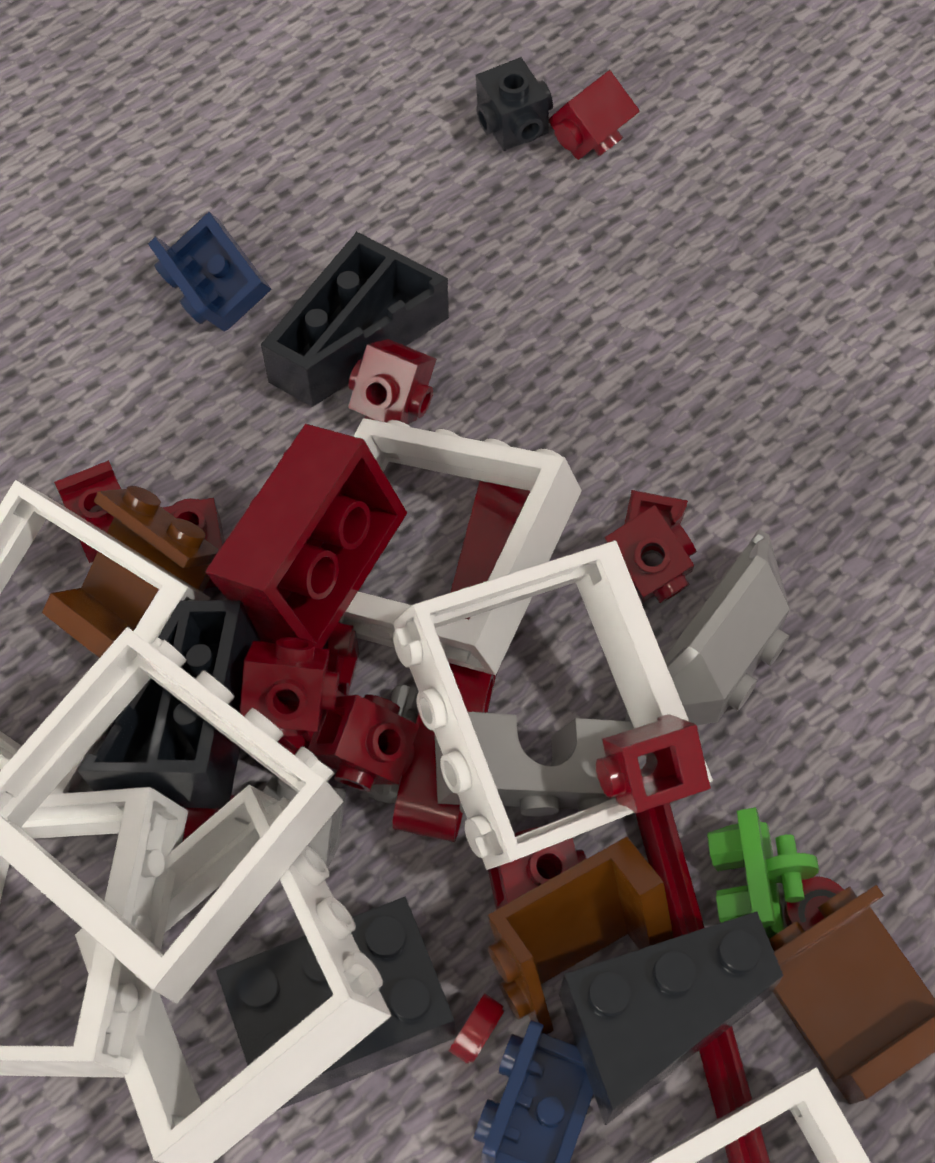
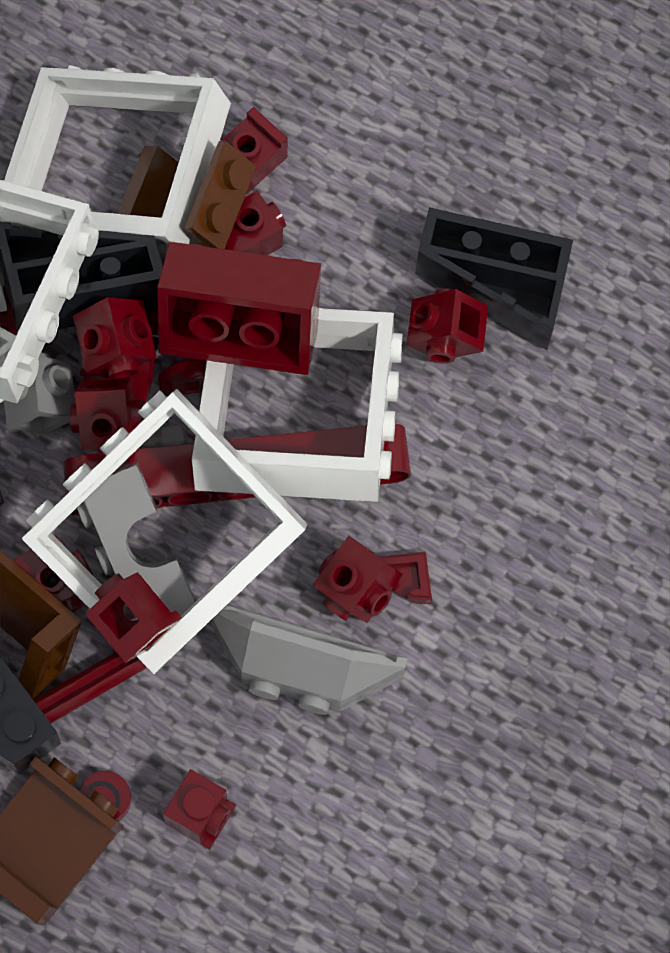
camera: 65 degrees right, 10 degrees up
(211, 273) = (508, 141): dark blue bracket -> none
(750, 847) = (116, 745): bright green hips -> none
(873, 796) = (199, 809): none -> dark red brick

